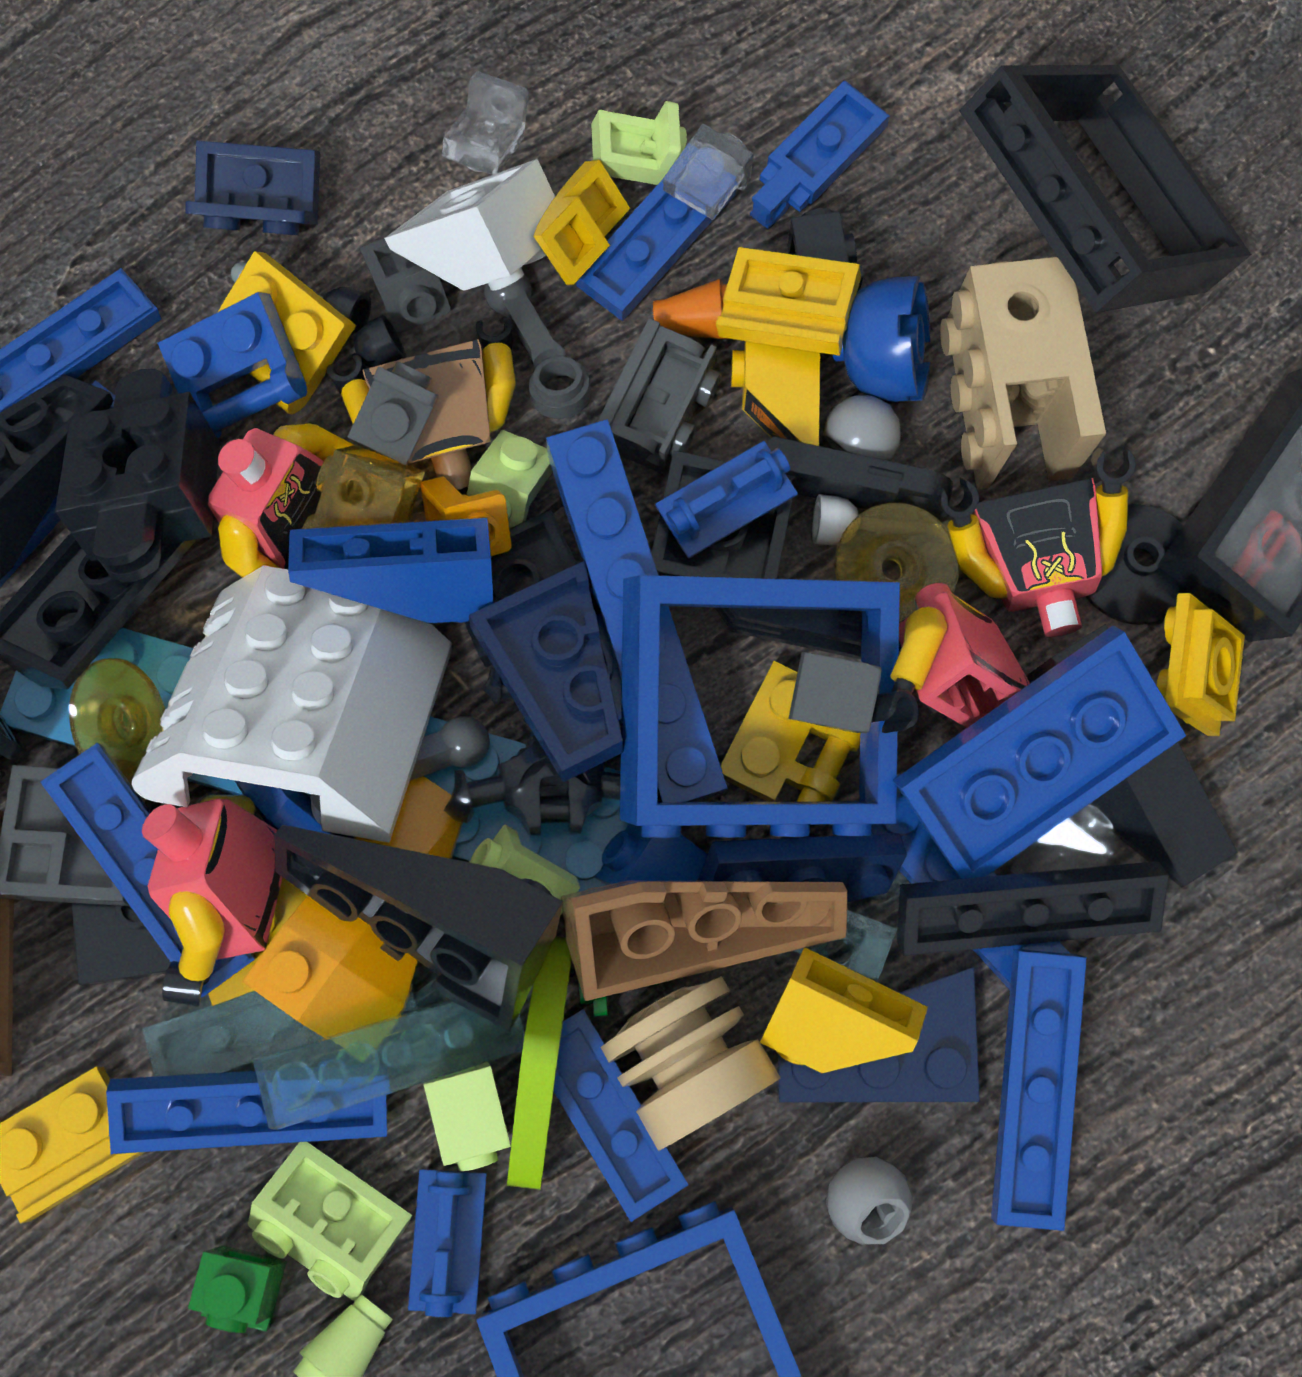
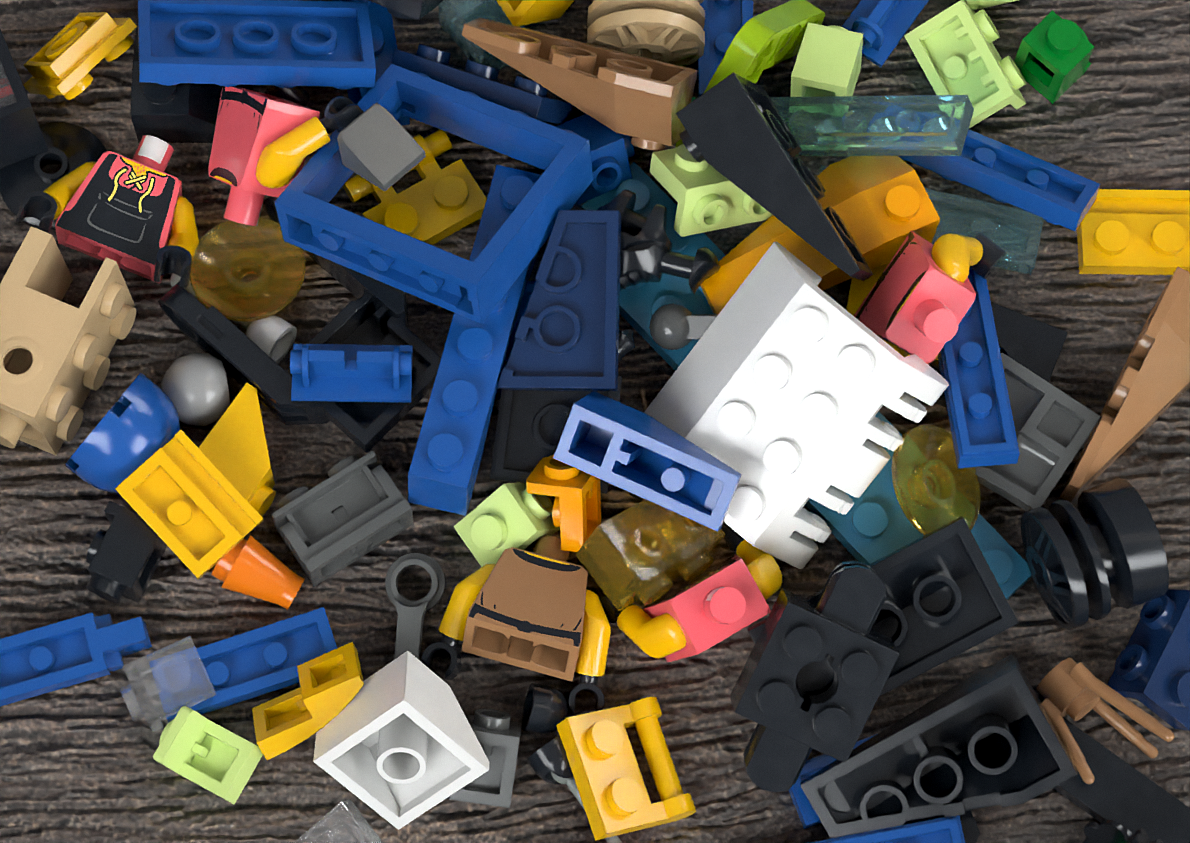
camera: 155 degrees left, 5 degrees down
(229, 348) = (678, 766): blue plate -> none
(394, 412) = (573, 595): dark grey bracket -> none

